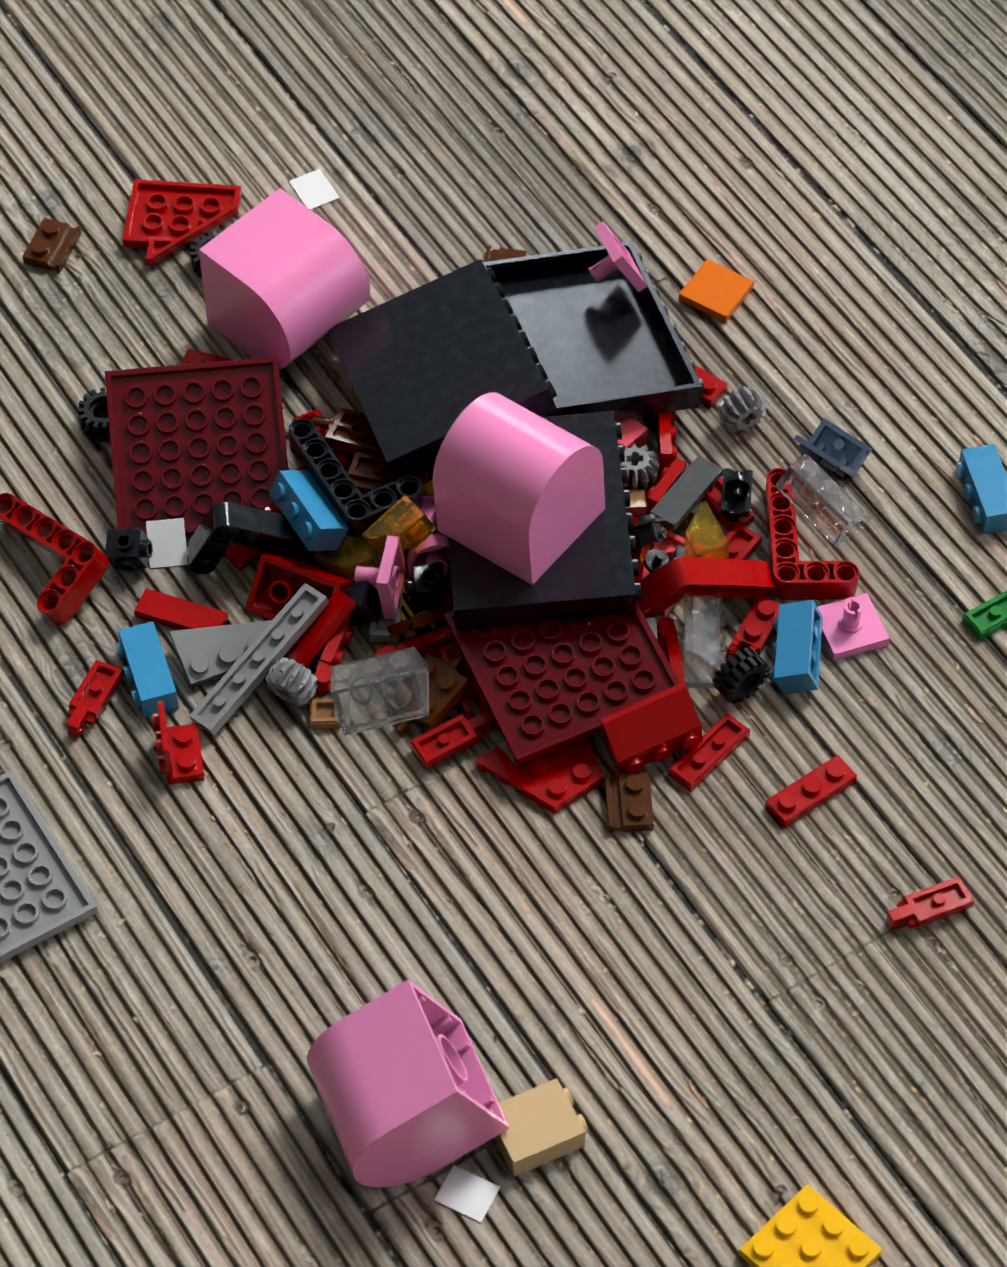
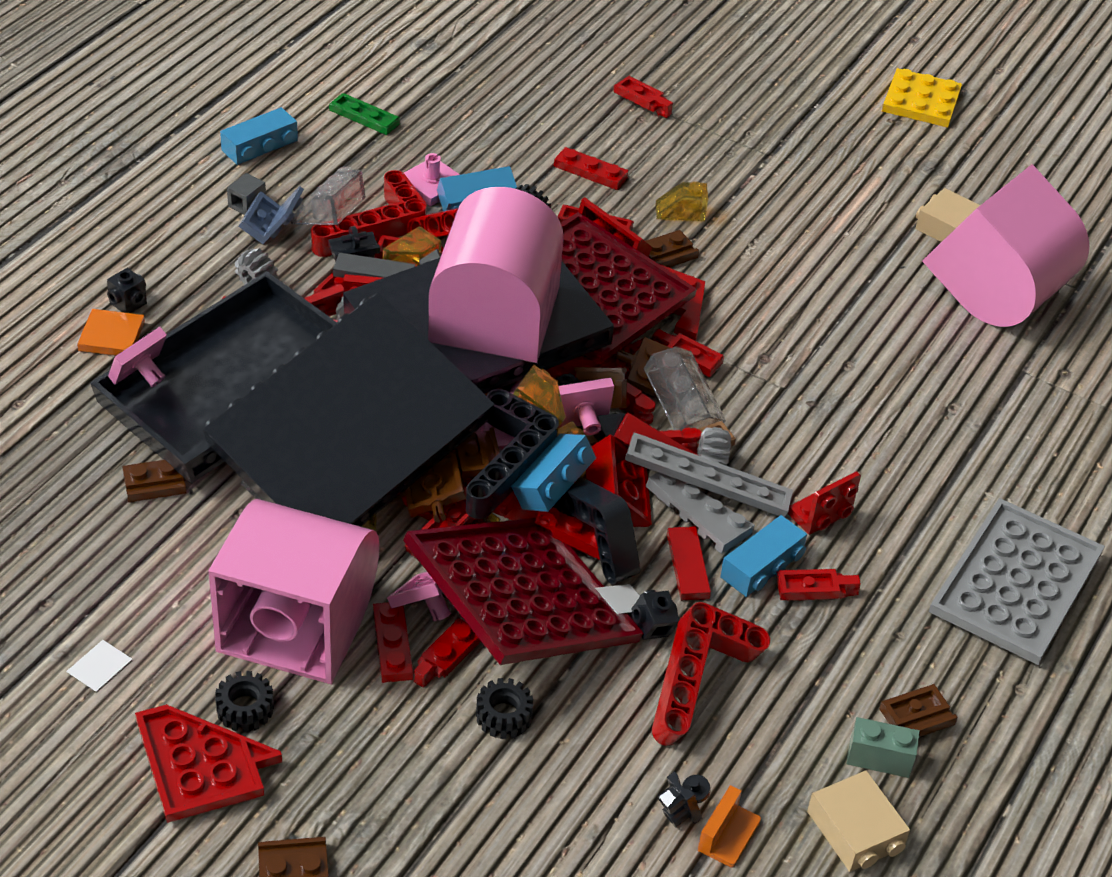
camera: 120 degrees left, 10 degrees down
(694, 849) = (684, 202): none -> clear yellow slope
(763, 307) = (127, 291): none -> black brick
(887, 446) = (243, 192): none -> dark grey brick

